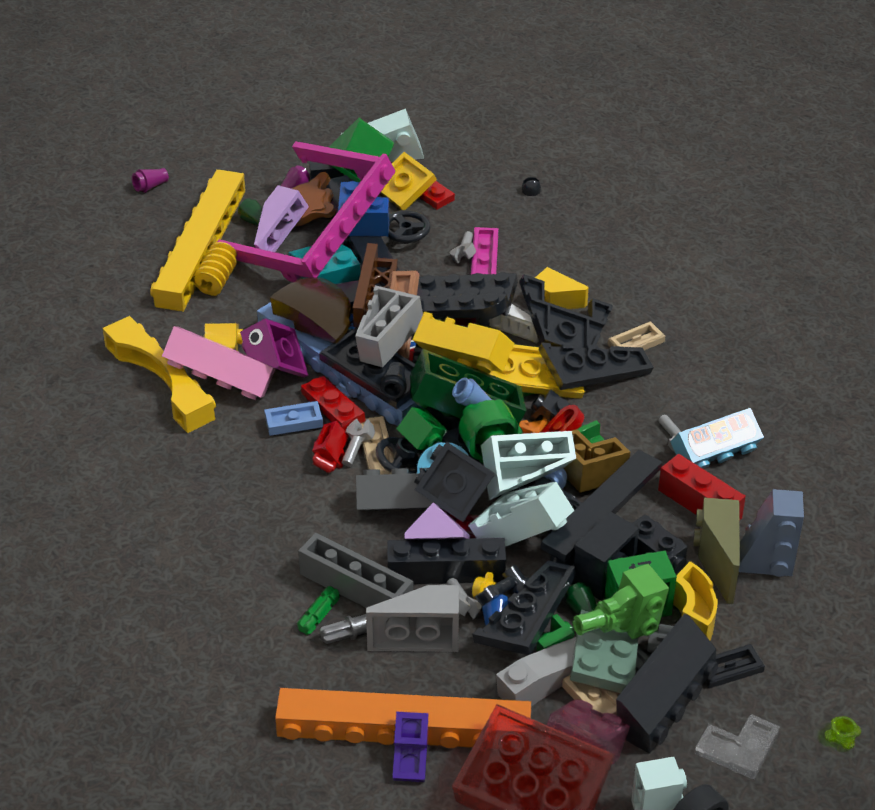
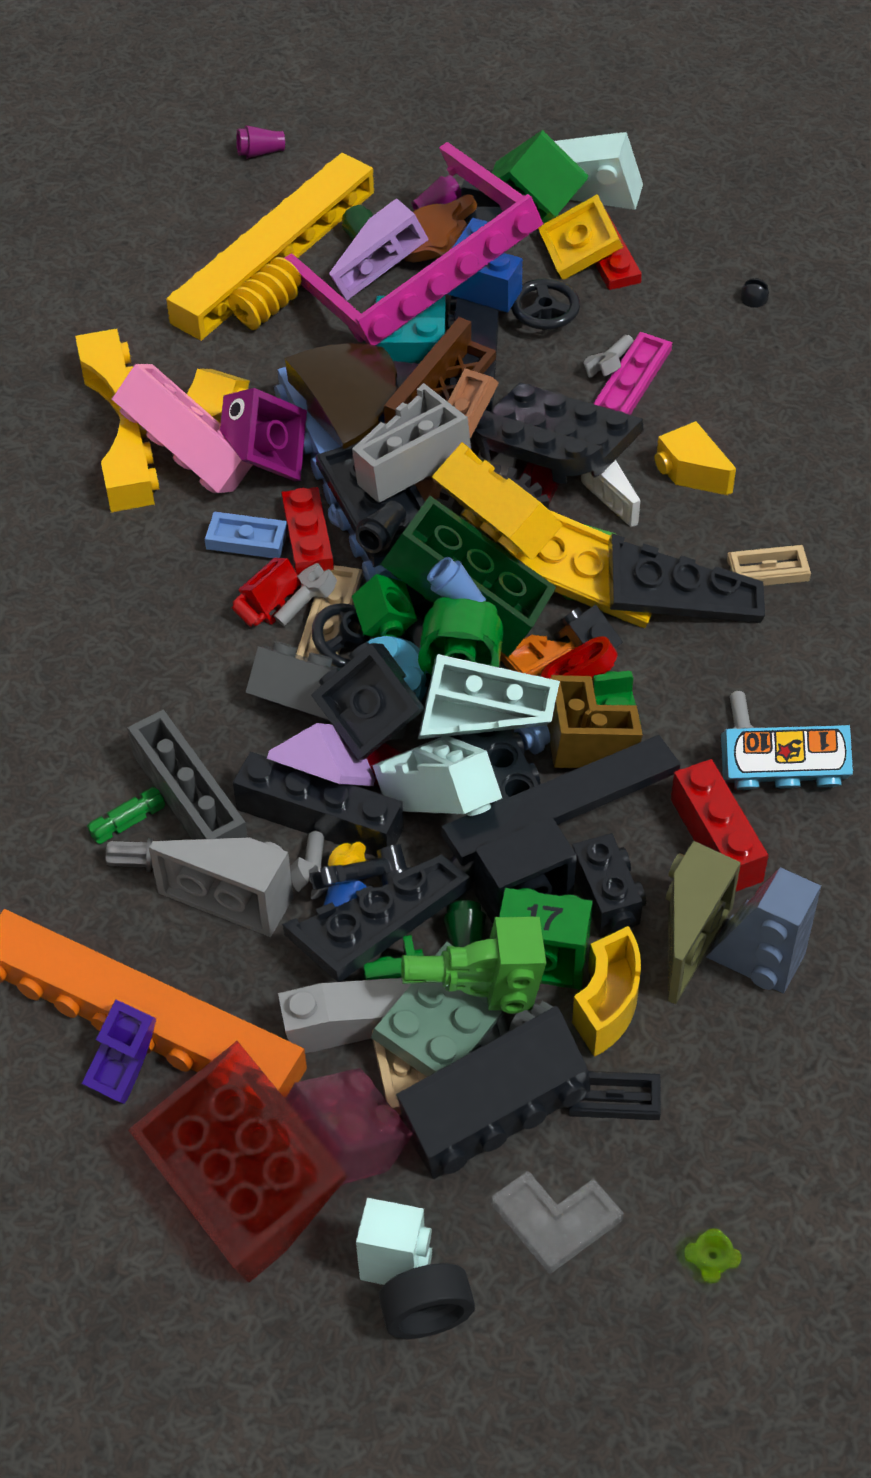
camera: 25 degrees right, 10 degrees up
(558, 324) = (669, 517): black wing -> none

